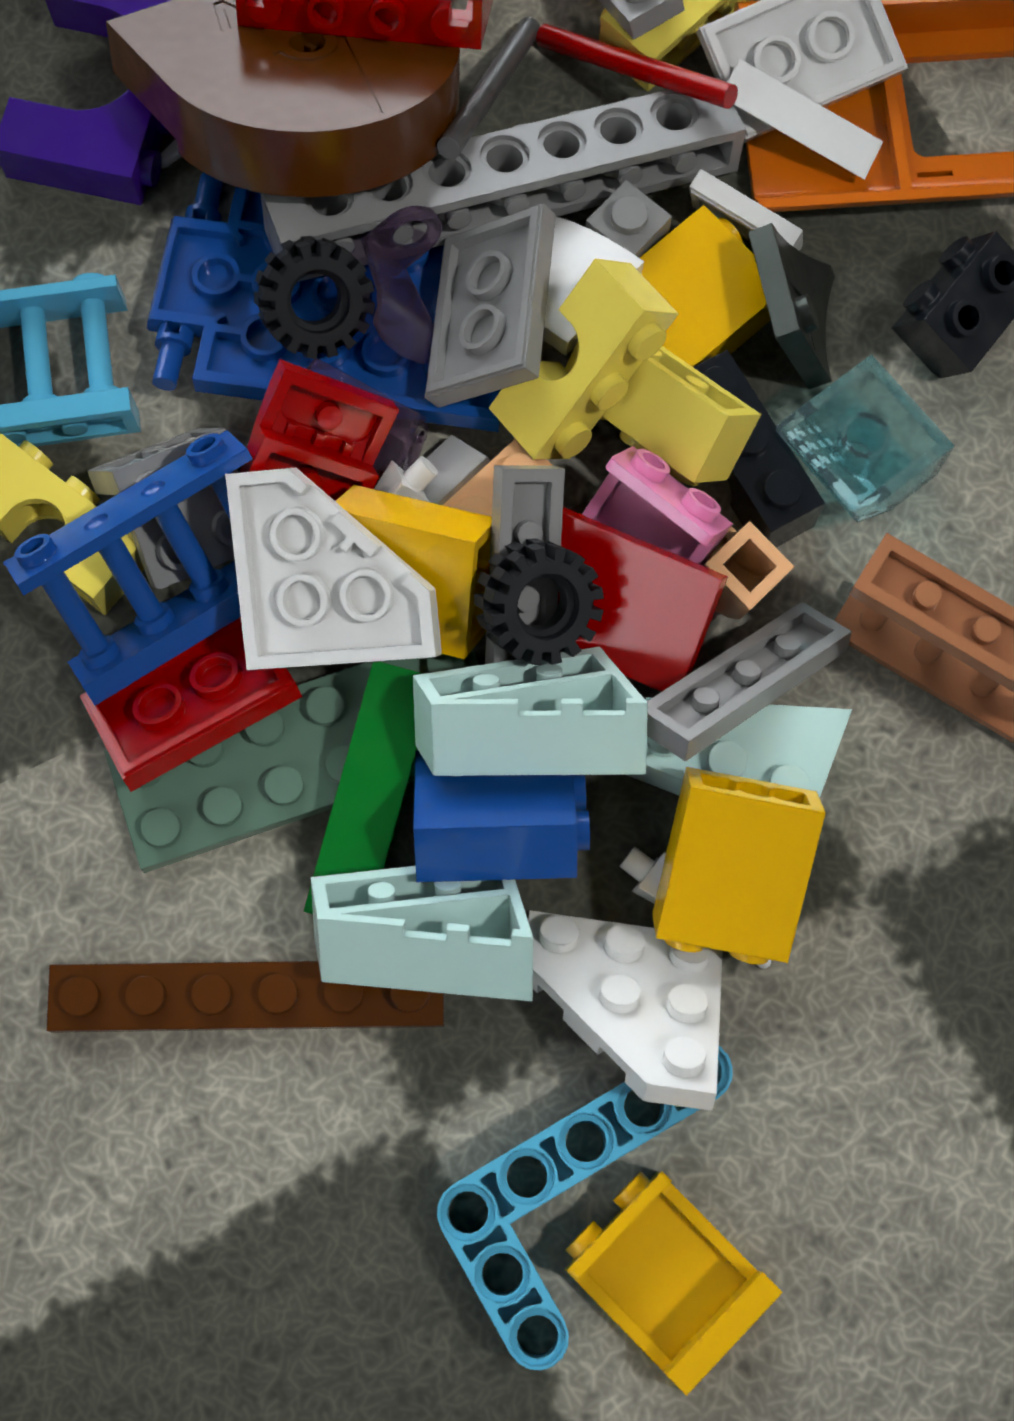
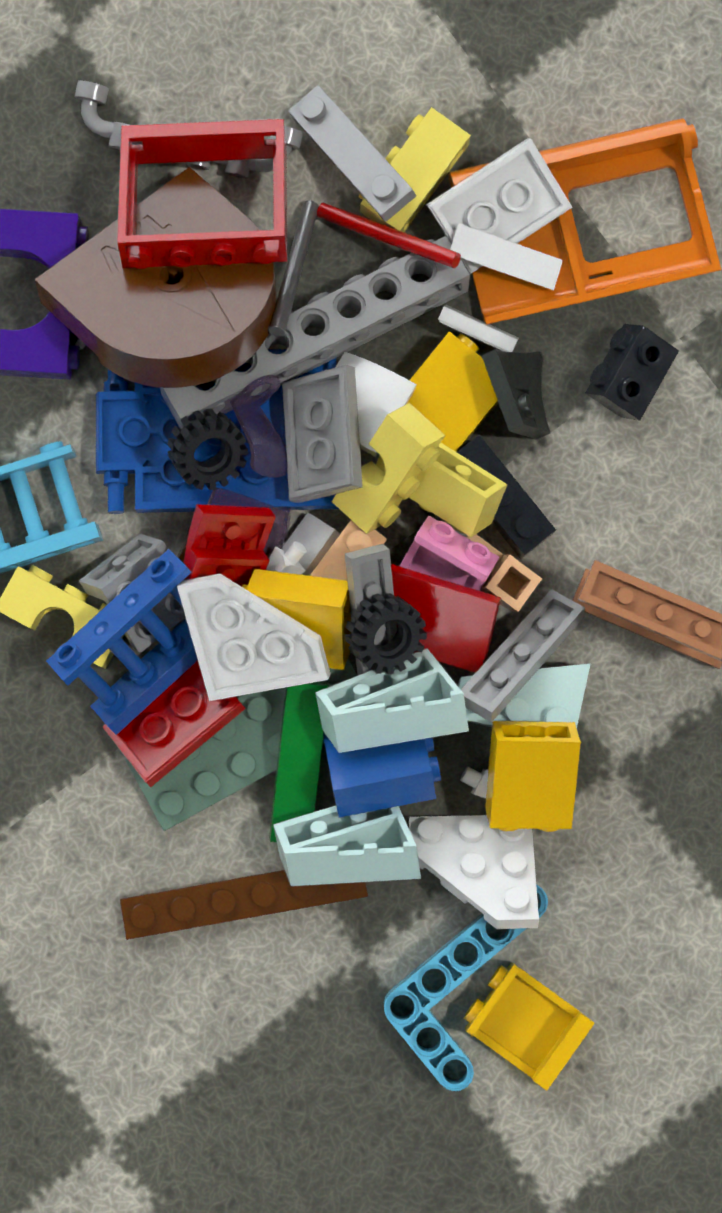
camera: 10 degrees left, 10 degrees up
(630, 220) = (402, 353): light grey brick -> none
(866, 441) = (575, 483): clear light blue slope -> none

